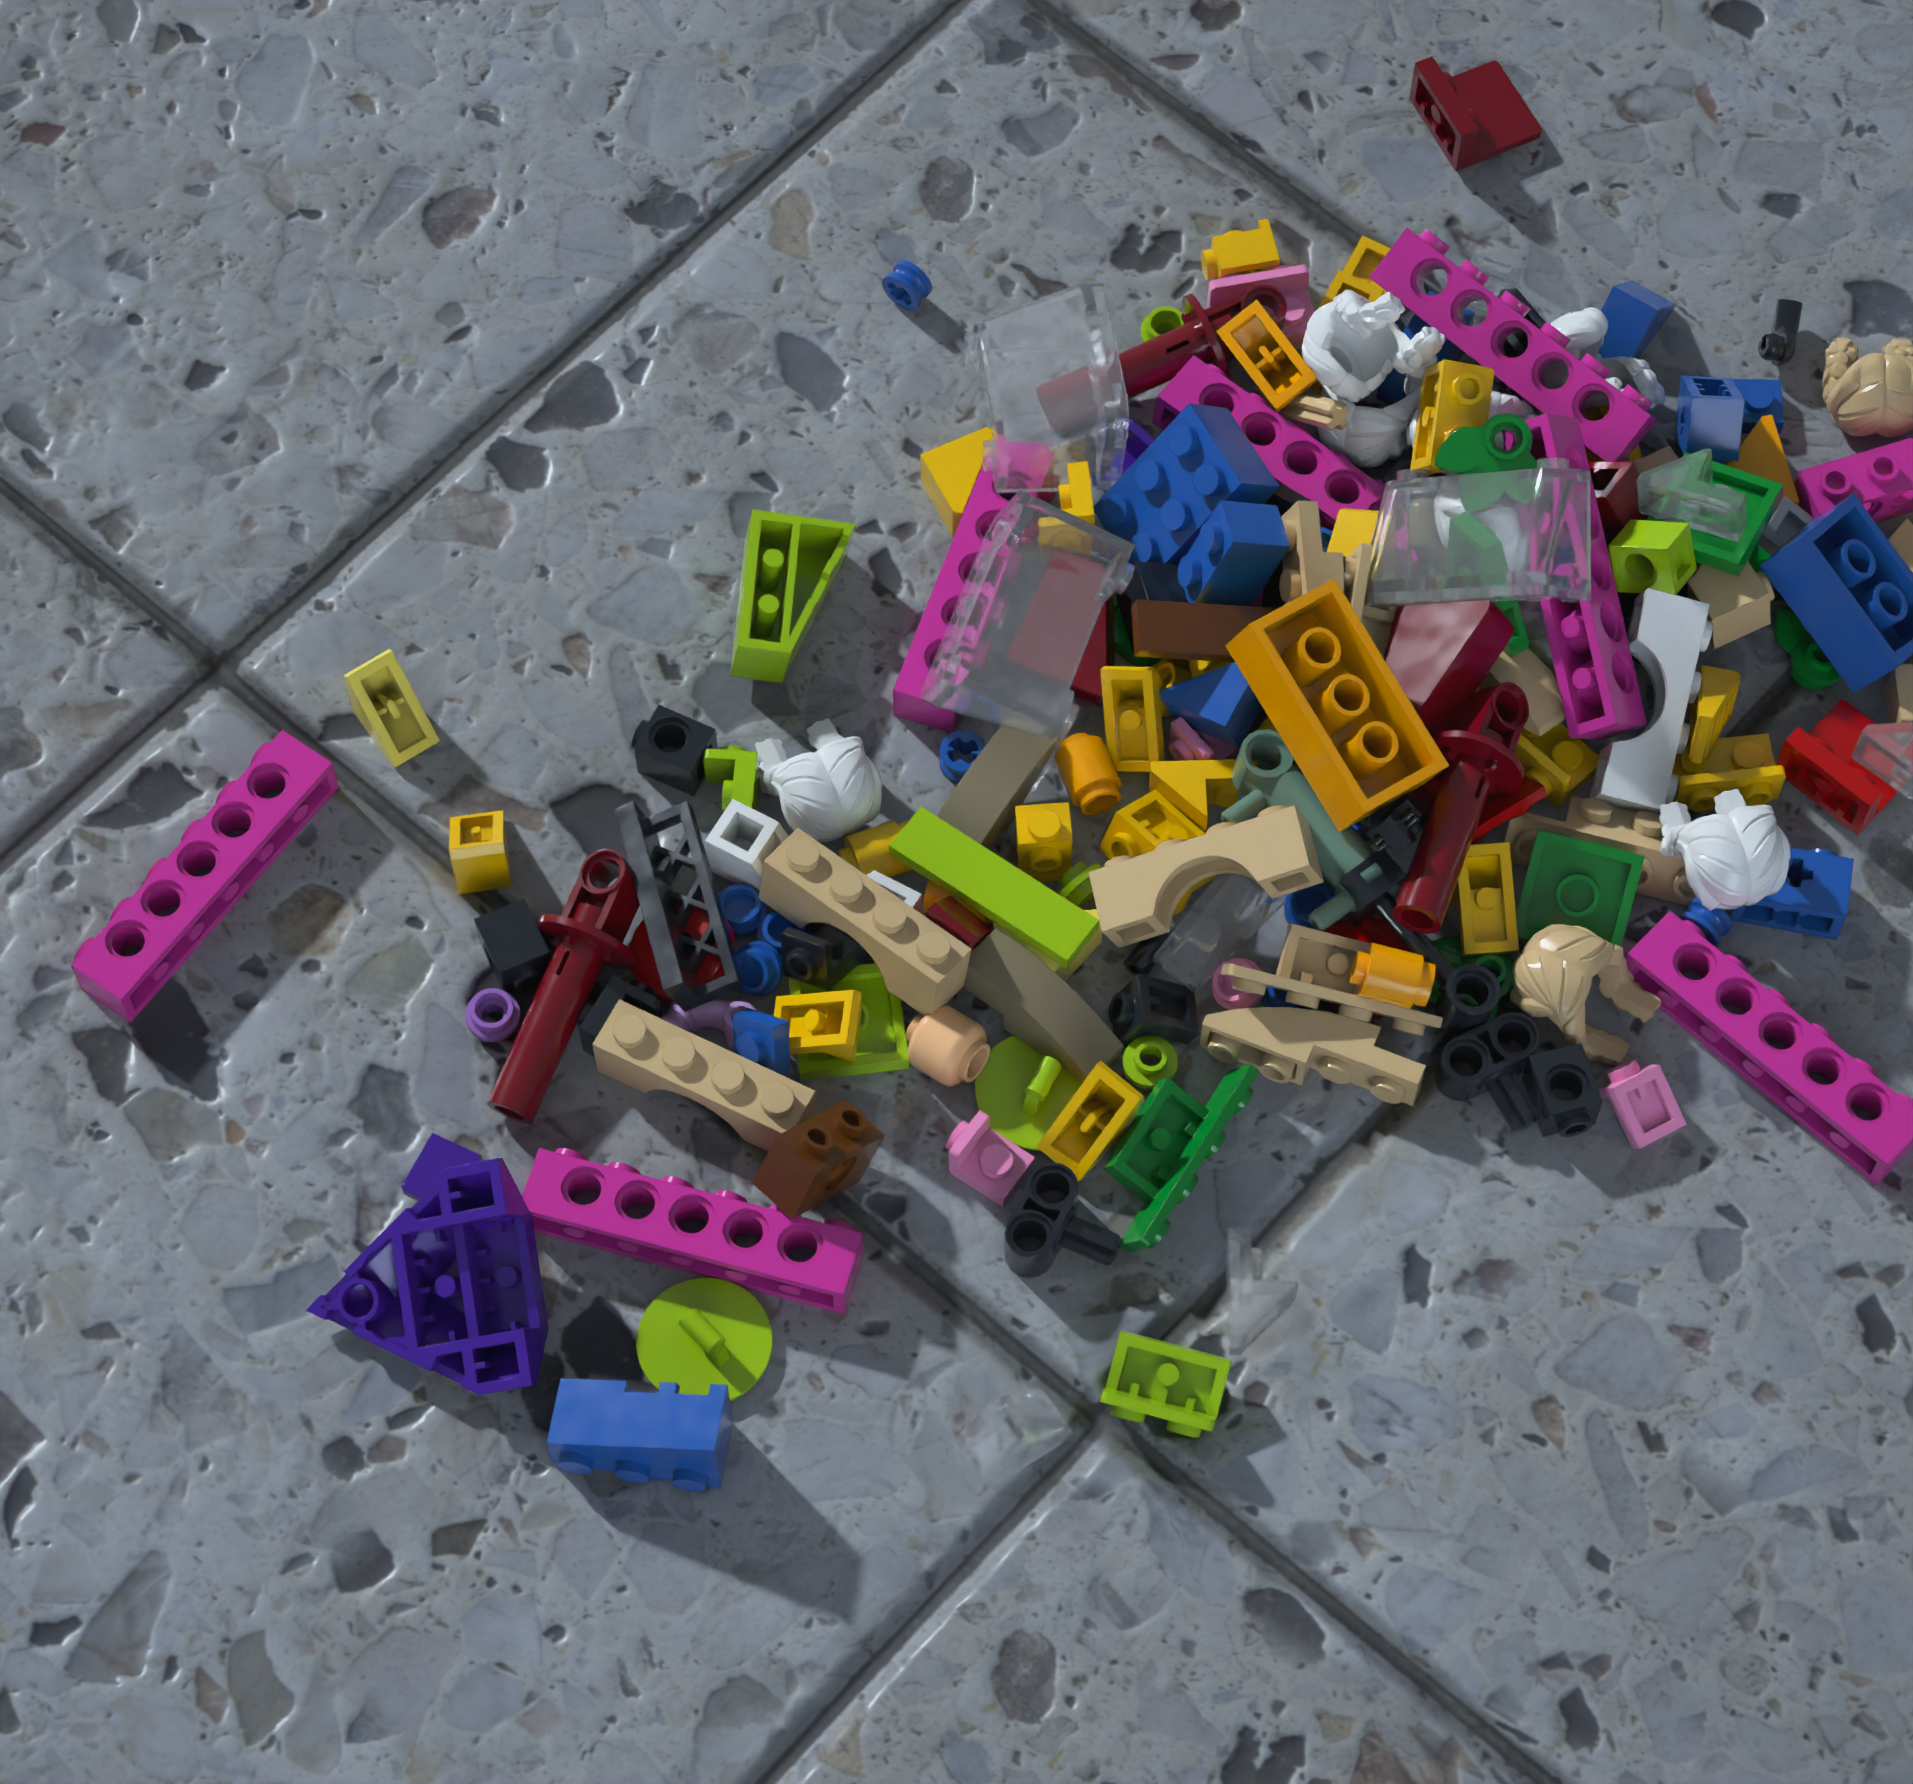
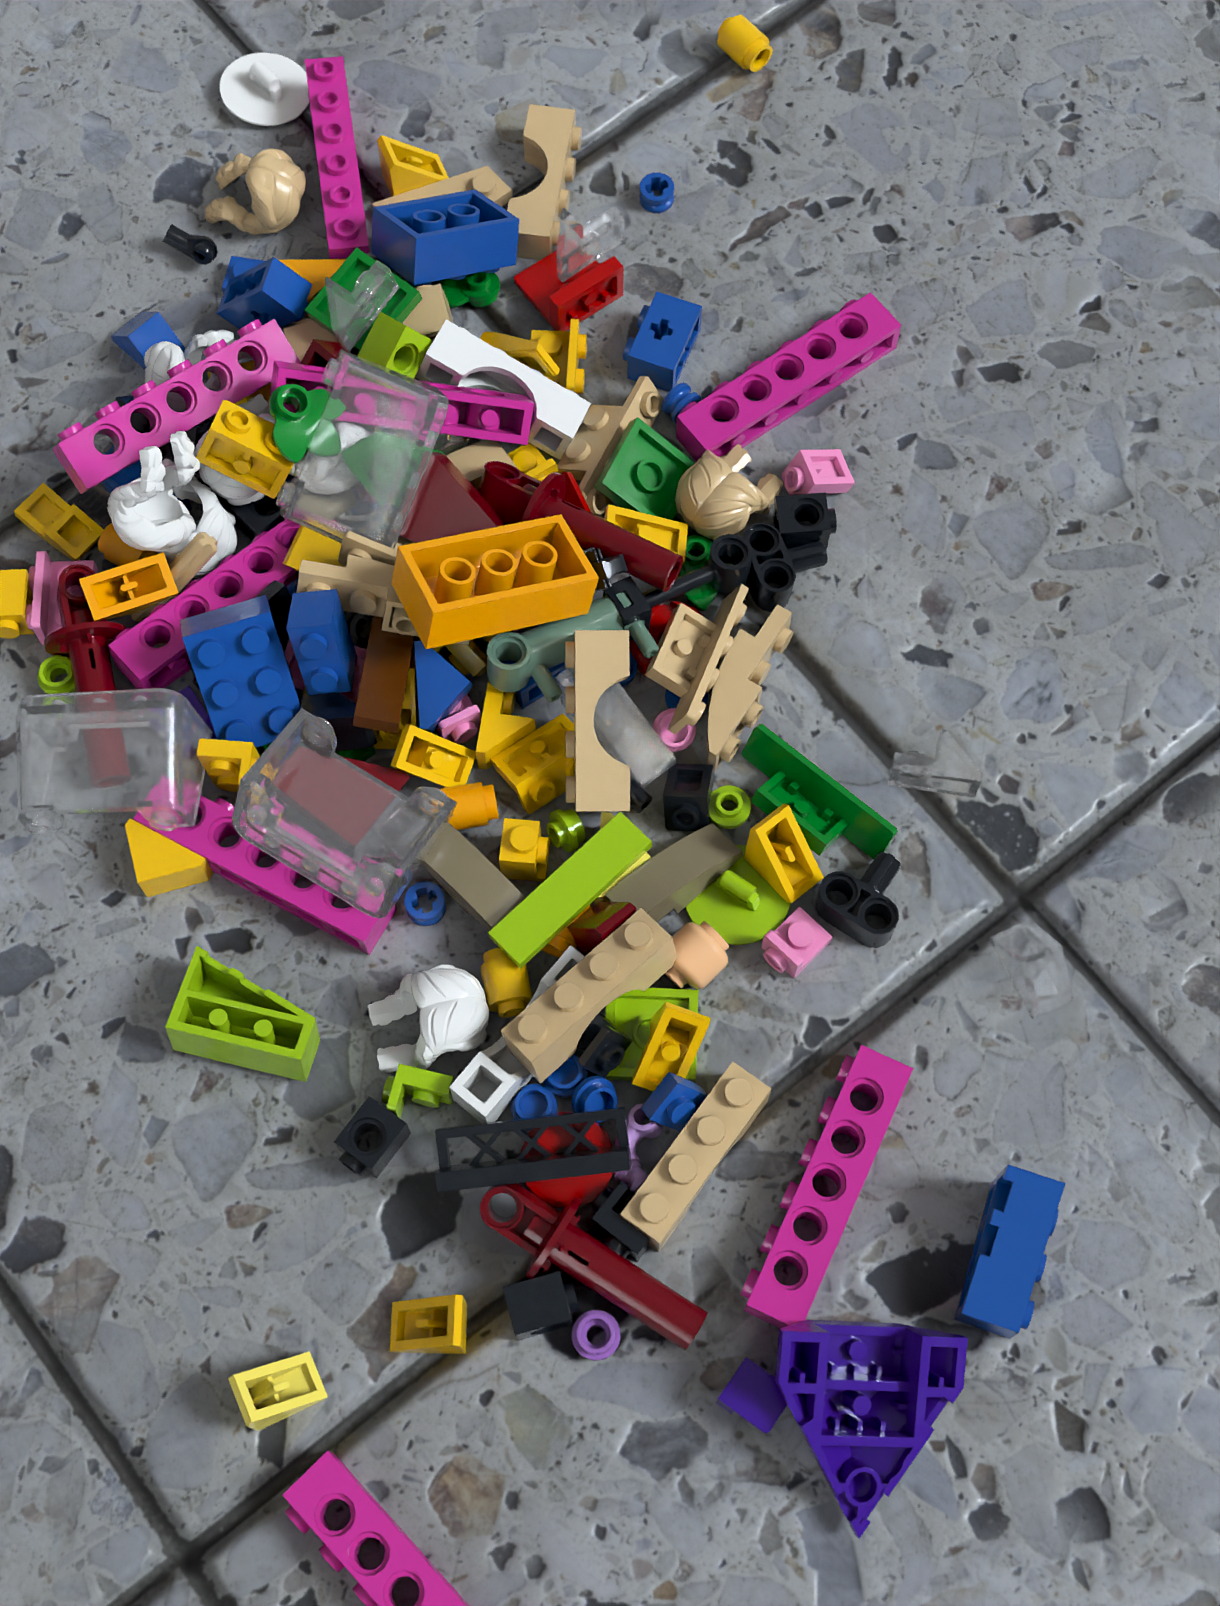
camera: 80 degrees left, 5 degrees up
(705, 1336) = (921, 1195): lime shield -> none
(818, 1159) = (792, 1069): reddish brown brick -> none
(1166, 1383) = (1006, 842): lime bracket -> none
(1392, 976) = (708, 606): light orange brick -> none
(1730, 854) = (657, 353): white hair -> none

